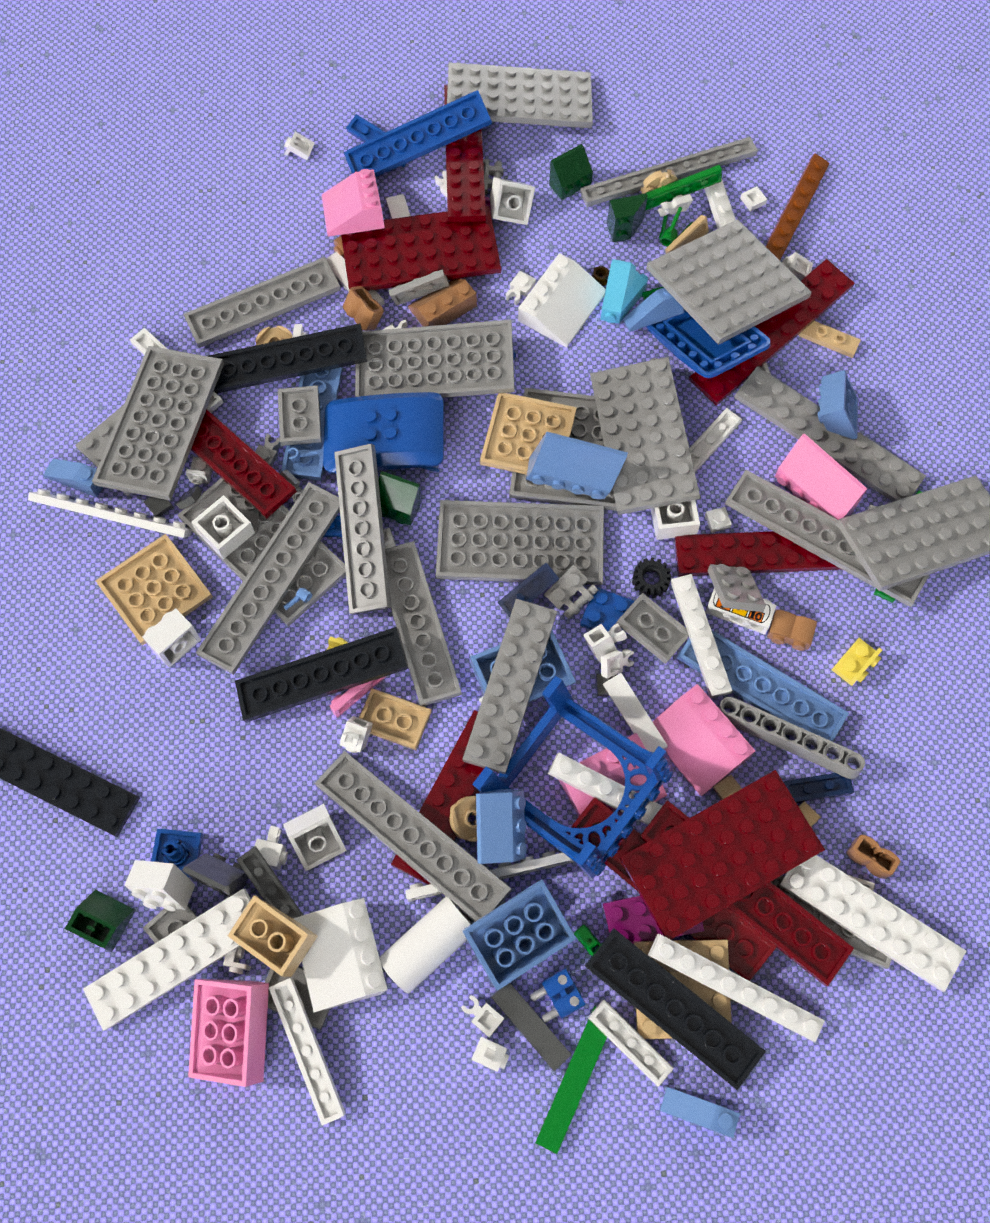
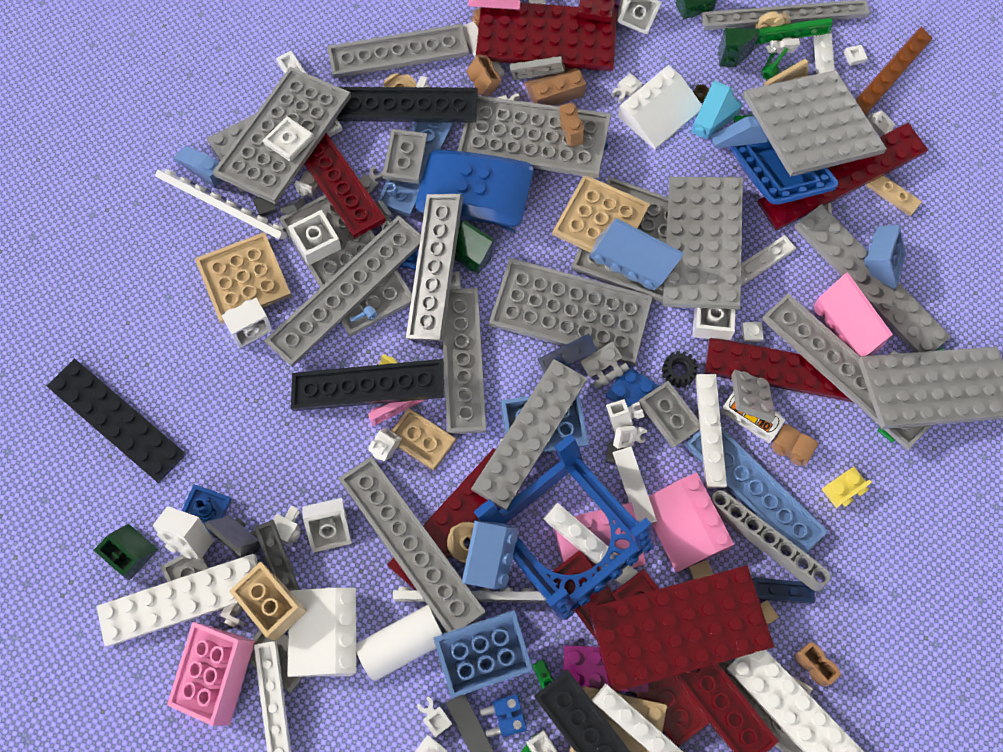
camera: 10 degrees right, 0 degrees up
(167, 425) = (288, 139): none -> white tile
(472, 341) = (571, 124): none -> medium nougat brick

